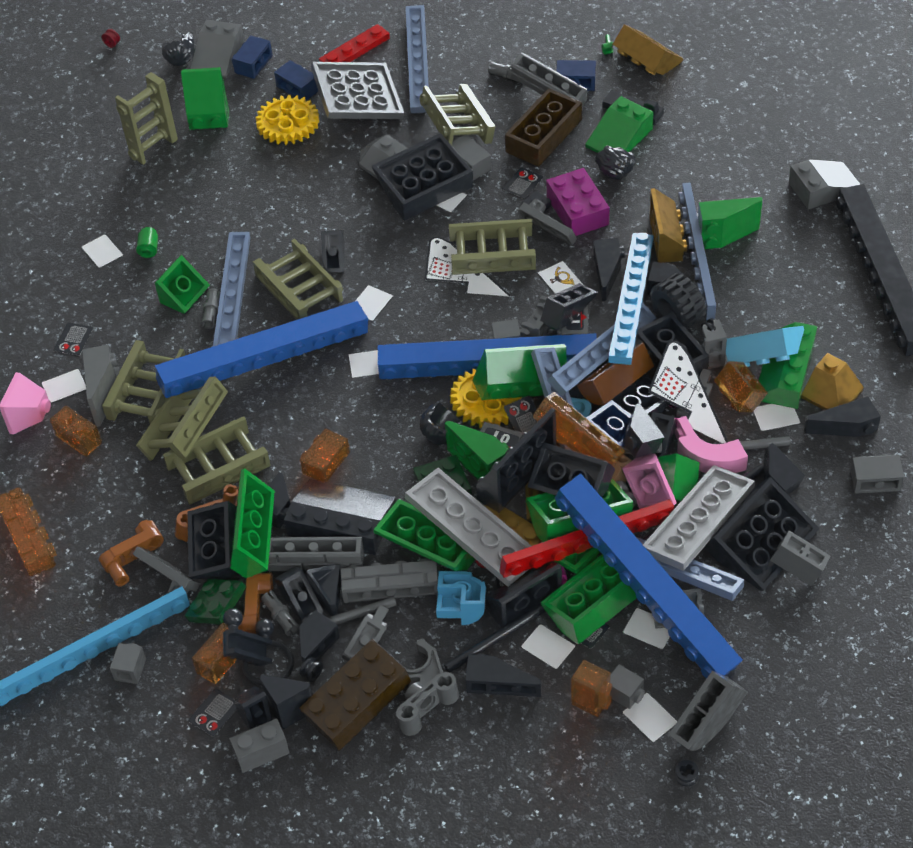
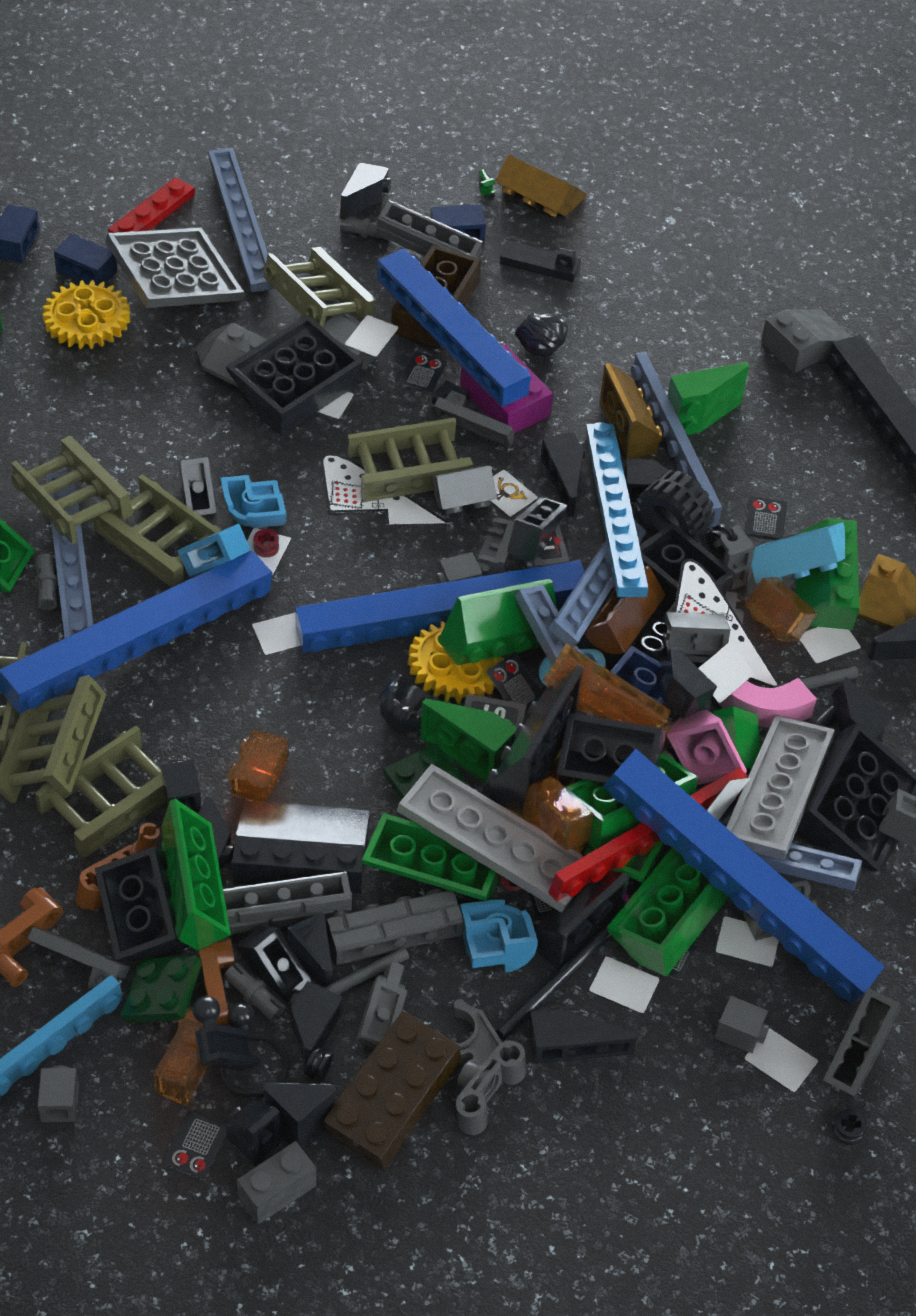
camera: 20 degrees left, 0 degrees up
(255, 232) = (85, 470): none -> olive fence
(261, 461) = (181, 783): none -> black slope
(330, 297) = (214, 550): none -> dark azure slope
(368, 267) = (254, 502): none -> dark azure brick
(375, 293) = (273, 543): none -> dark red bush
(486, 152) = (371, 335): none -> white sticker
(511, 43) = (364, 189): none -> black slope
(521, 514) = (559, 813): none -> clear orange brick
(525, 271) = (464, 488): none -> brick
(545, 152) = (454, 327): none -> blue brick
(591, 688) = (705, 1034): clear orange brick -> none
(621, 126) = (534, 286): green slope -> none
(651, 521) = (726, 797): none -> white sticker
(665, 397) = (696, 632): none -> dark grey hinge
(680, 428) = (727, 671): none -> white sticker
(753, 316) = (766, 517): none -> black sticker

